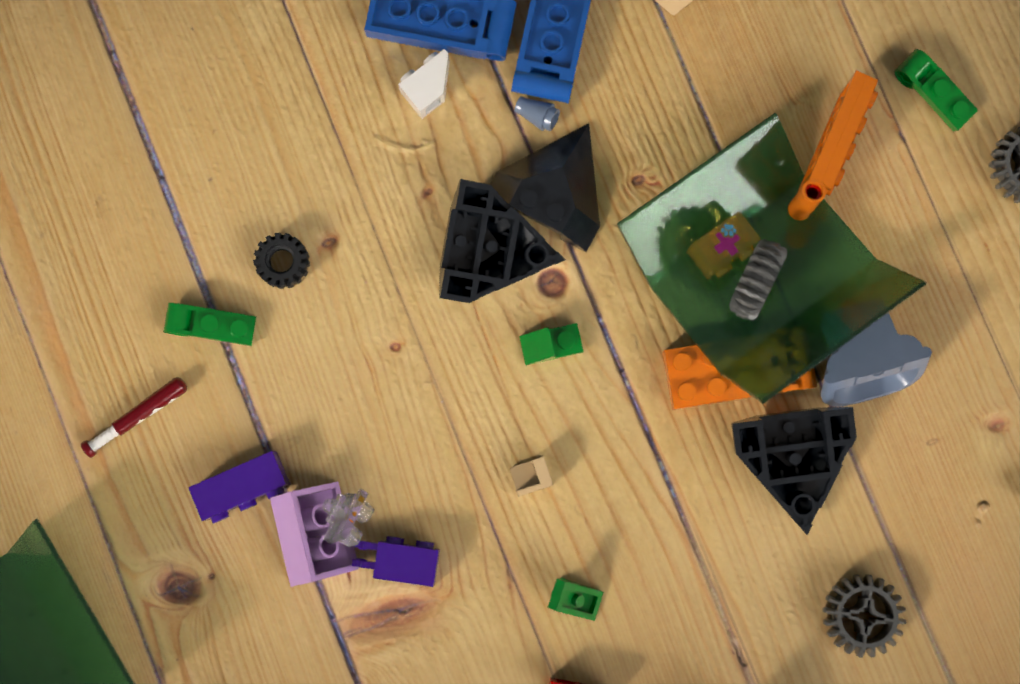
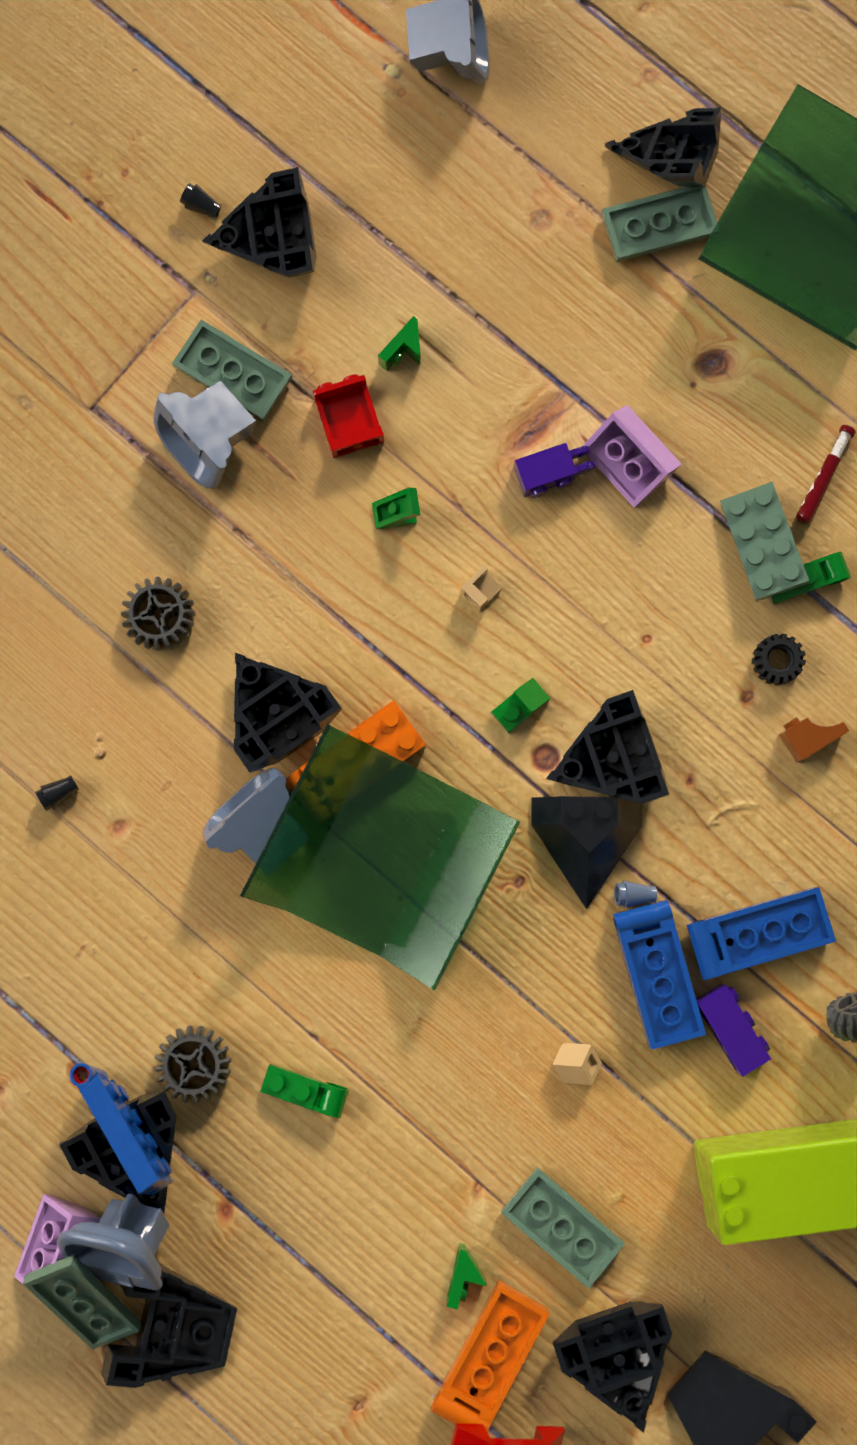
camera: 150 degrees right, 0 degrees up
(232, 379) = (764, 542): none -> sand green plate
(239, 487) = (709, 461): dark purple brick -> none
(297, 170) = (806, 738): none -> dark orange arch
(342, 516) = (615, 478): clear hips -> none
(426, 86) = (738, 870): white slope -> none
(723, 245) = (420, 854): clear yellow brick -> none
(758, 279) = (379, 835): dark grey gear -> none
(835, 145) = (369, 987): orange hinge -> none

